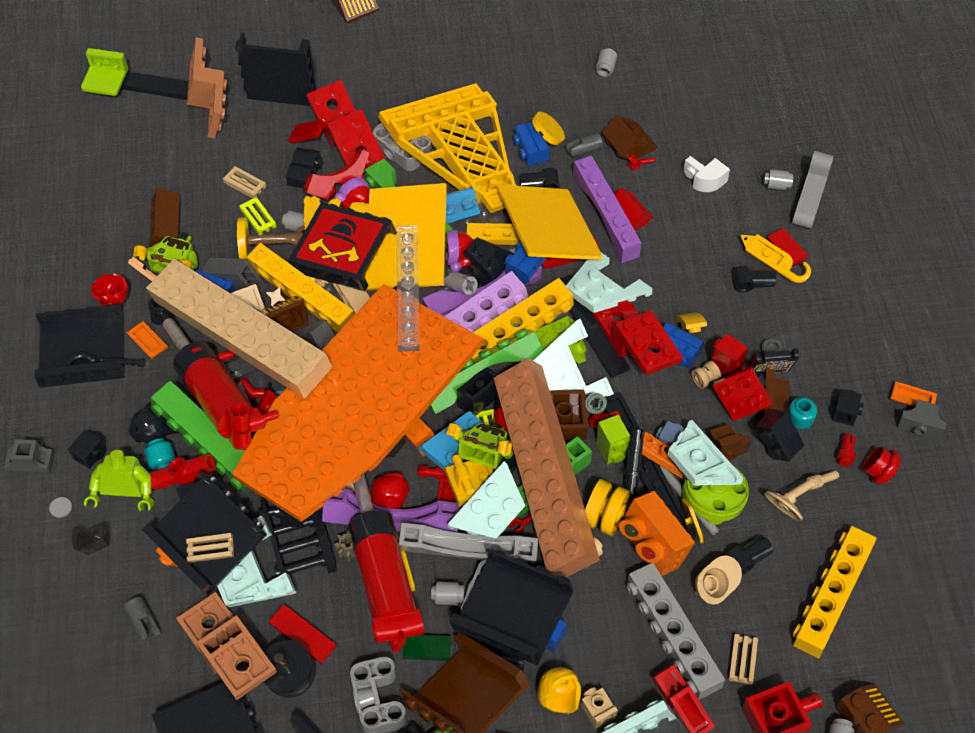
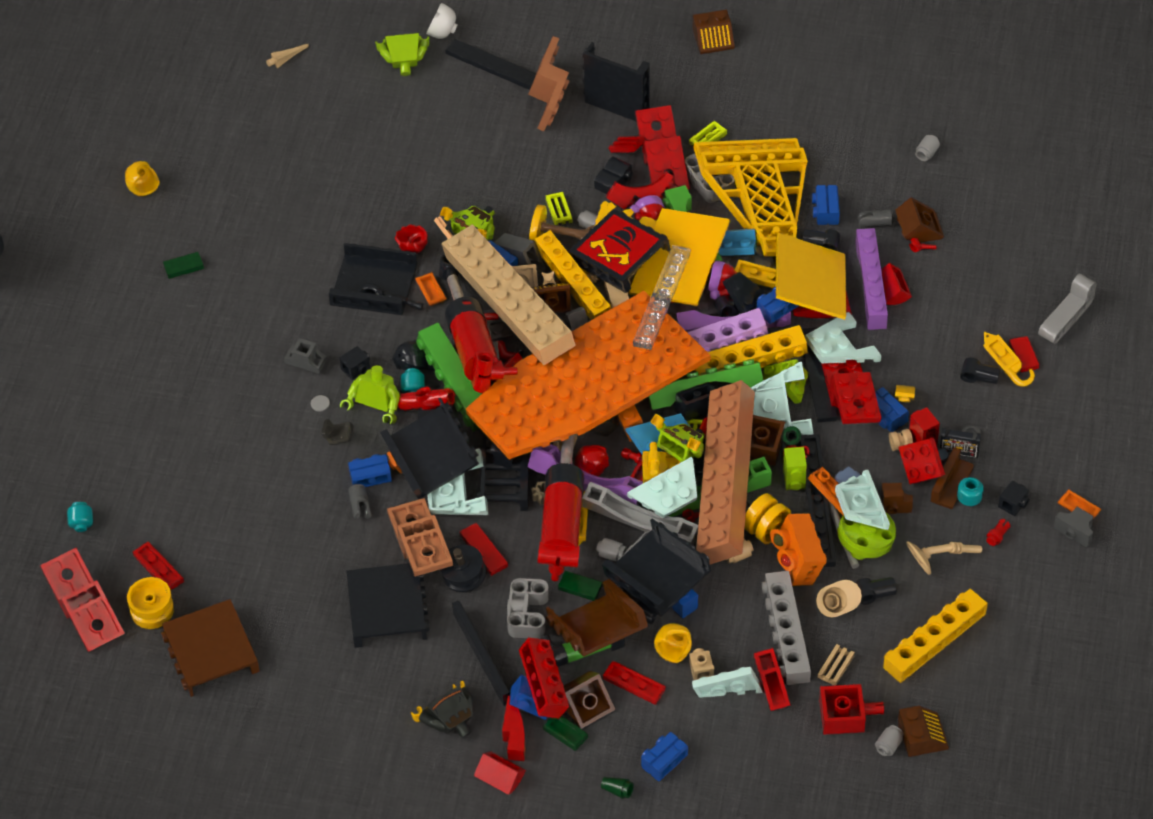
camera: 20 degrees right, 5 degrees down
(41, 90) = (403, 51): none -> lime torso
(74, 52) = (443, 23): none -> white cylinder
(105, 72) = (464, 48): lime bracket -> none
(142, 576) = (370, 470): none -> blue brick
(164, 215) = (477, 187): reddish brown panel -> none
(206, 539) = (428, 454): tan tile -> none
(242, 185) = (554, 178): tan tile -> none
(394, 98) = (713, 136): none -> neon yellow tile
(460, 282) = (712, 307): light grey piece -> none
(549, 127) = (847, 194): yellow tile -> none
(634, 461) = (801, 498): black pin -> none
(691, 519) = (835, 547): yellow piece -> none
(707, 177) = (977, 275): white brick -> none
(778, 179) = (1042, 292): light grey brick -> none
(780, 435) = (940, 502): black brick -> none
(882, 465) = (1021, 551): red piece -> none

